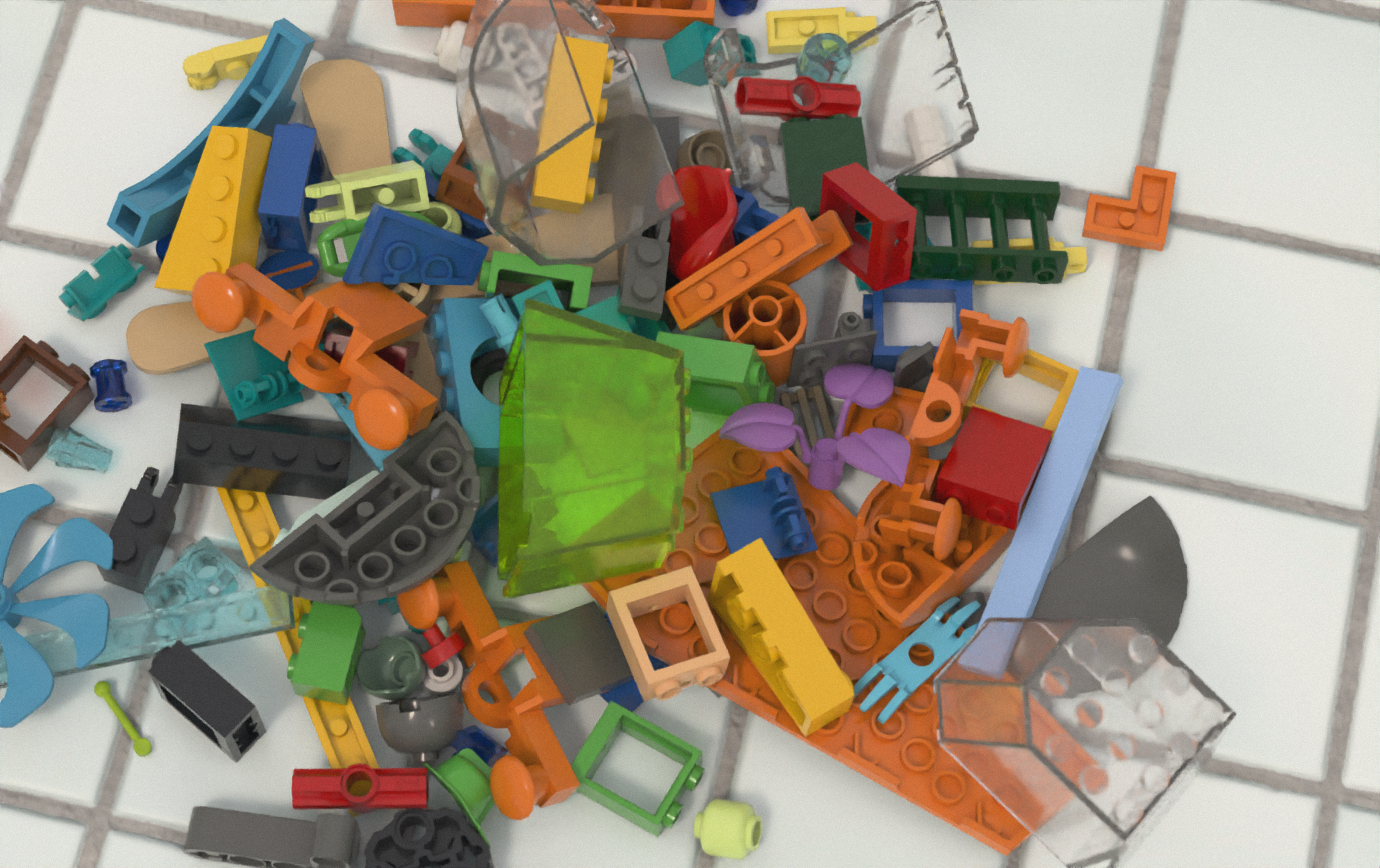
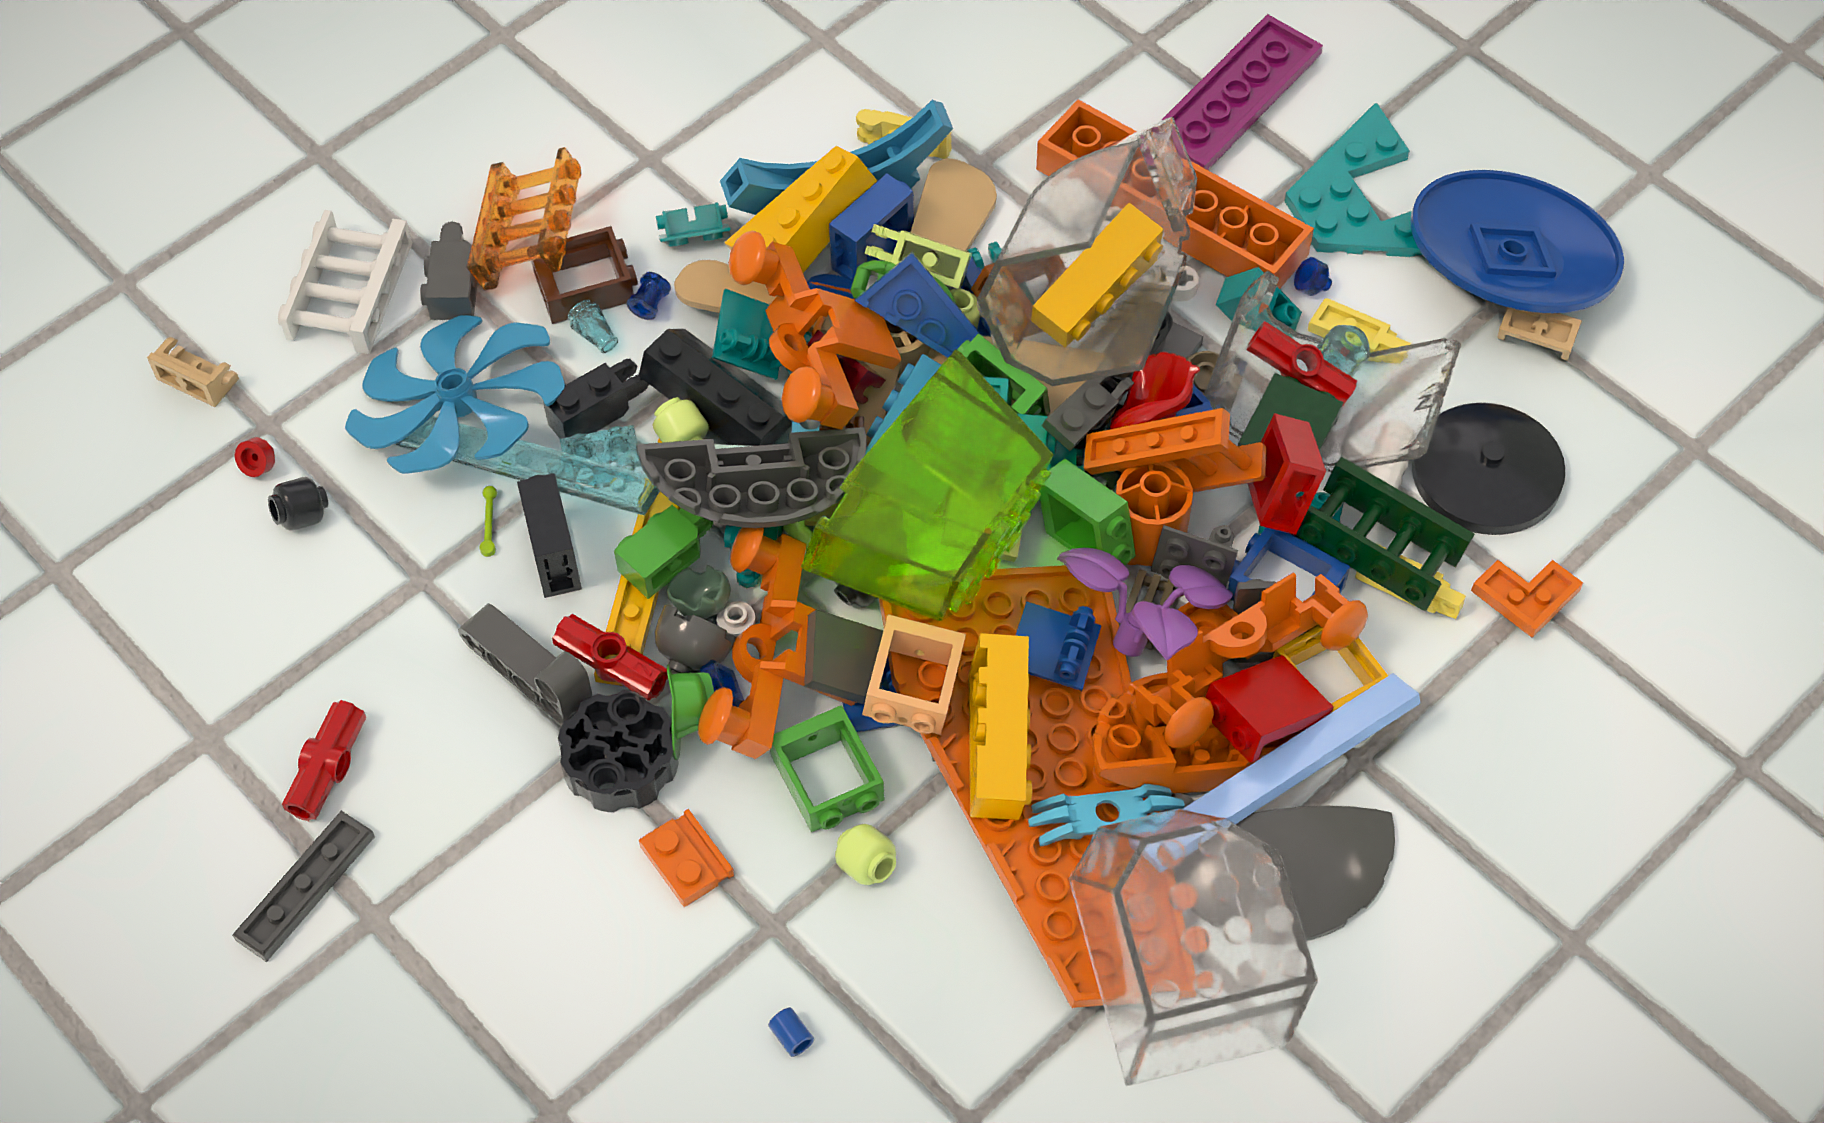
camera: 35 degrees right, 10 degrees down
(255, 510) = (679, 421): none -> yellowish green head
(441, 646) = (743, 594): red tile -> none
(1030, 102) = (1490, 469): none -> black dish

